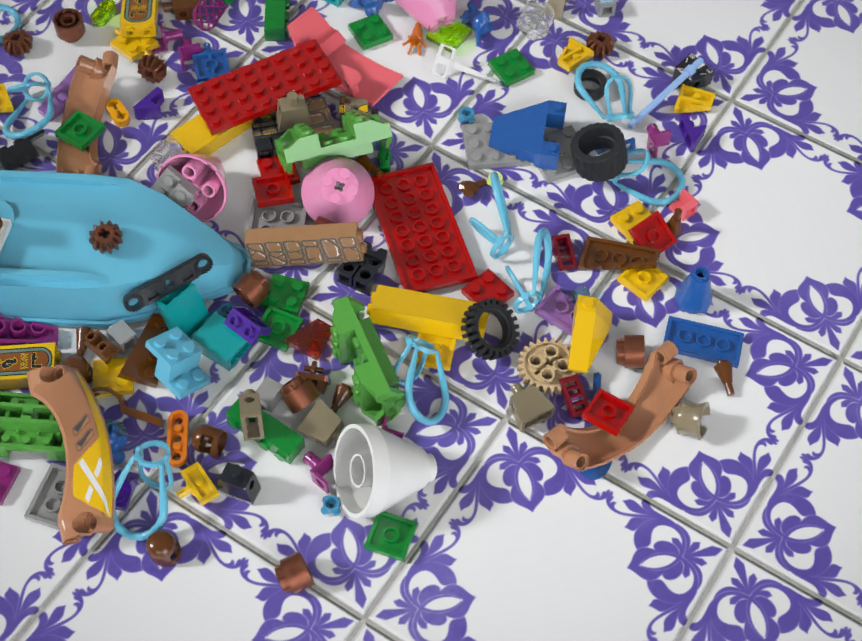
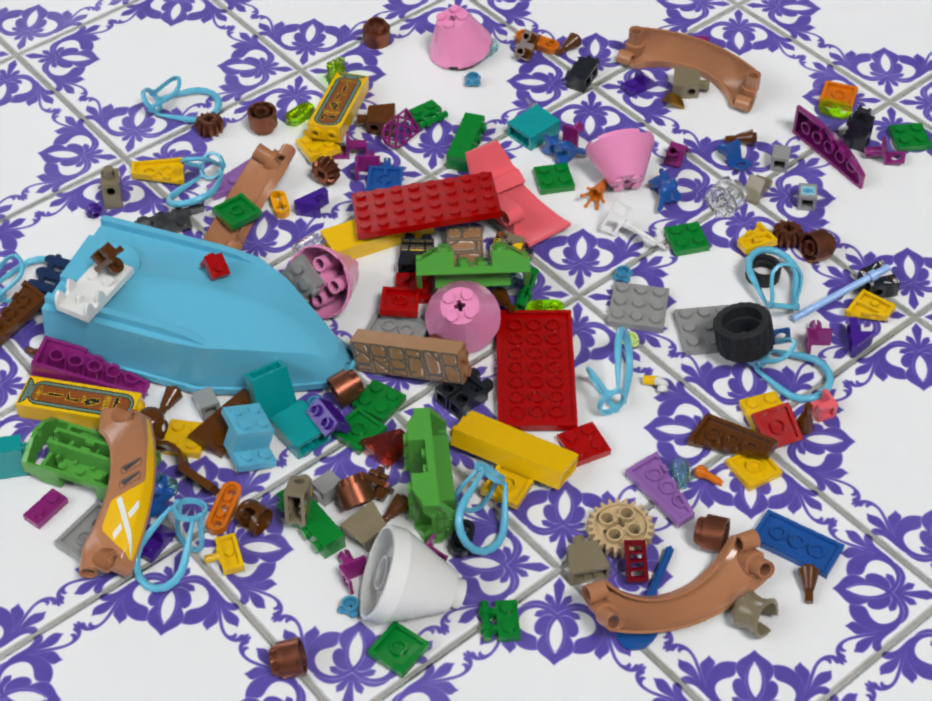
camera: 20 degrees right, 10 degrees down
(92, 199) = (215, 266): none -> red bracket
(98, 234) = (214, 301): copper gear -> none
(101, 346) = (182, 405): reddish brown hips -> none
(157, 288) = (274, 355): black piece -> none
(161, 546) = (168, 600): reddish brown helmet -> none
(236, 483) = (266, 562): black torso -> none
(292, 111) = (444, 230): dark tan torso -> none
(406, 162) = (545, 304): none -> clear neon green plate
(407, 416) = (455, 543): none -> black plate
(451, 36) = (634, 197): clear neon green wing -> none
(471, 188) = (600, 342): reddish brown rock -> none
(473, 334) = (549, 482): black tyre -> none
(478, 482) = (507, 621): none -> green plate
(524, 130) = (674, 299): blue wedge -> none
(531, 214) = (657, 381): none -> arm
(542, 233) = (617, 451): medium azure animal -> none
(559, 239) = (680, 410): dark red slope -> none
(589, 329) = (674, 500): yellow wedge -> none
(601, 294) = (702, 473): none -> orange piece
(608, 412) = (664, 585): red plate -> none
(629, 48) = (819, 243): none -> copper piece
(695, 292) = (803, 490): blue cone -> none

